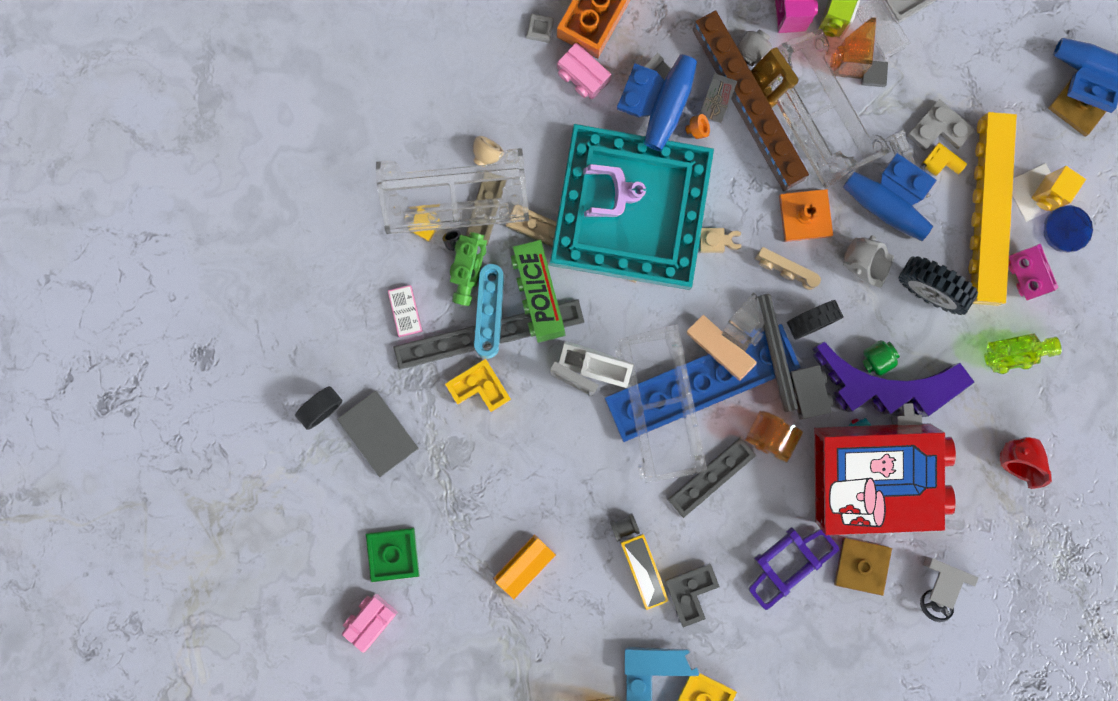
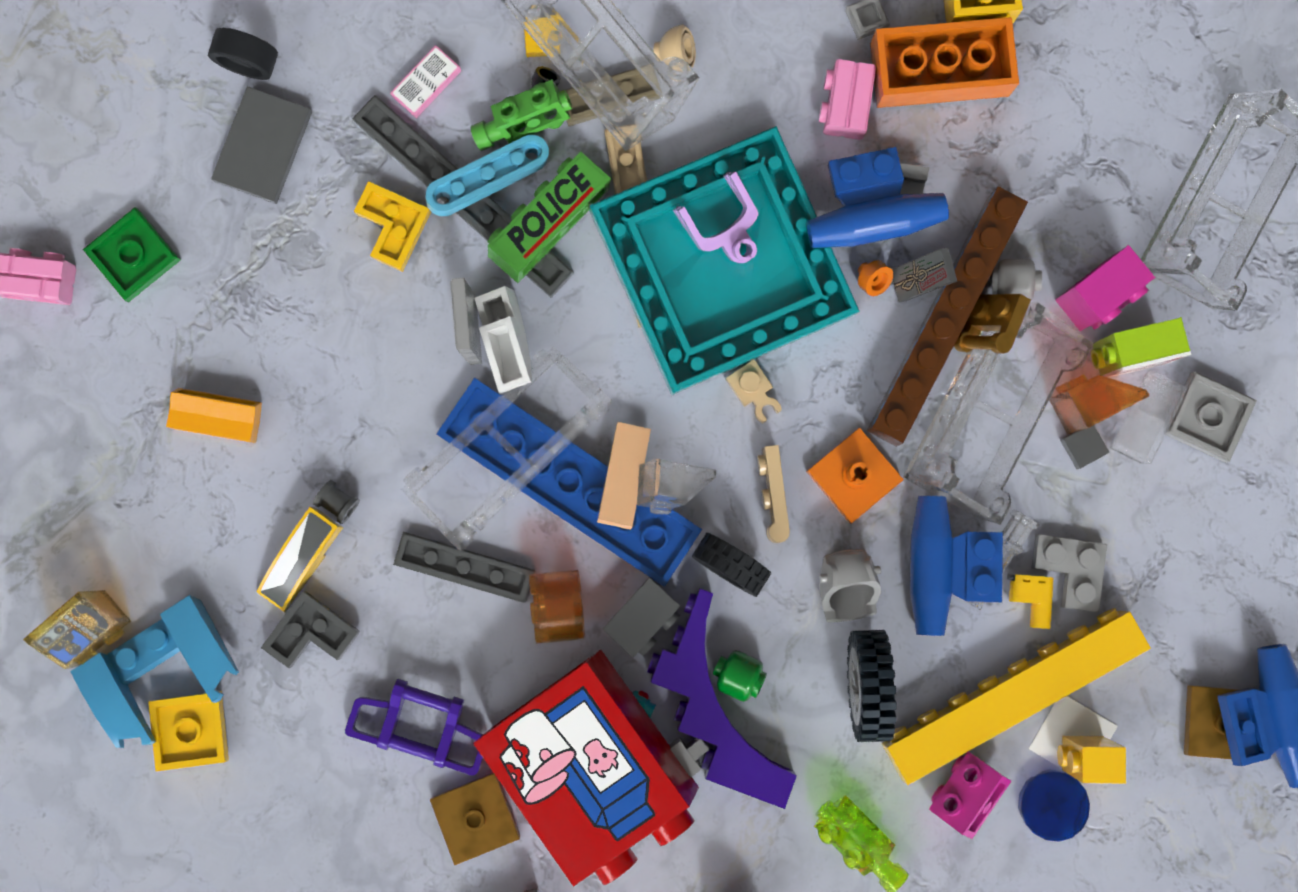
camera: 55 degrees right, 0 degrees up
(777, 353) = (662, 546): dark grey axle -> none

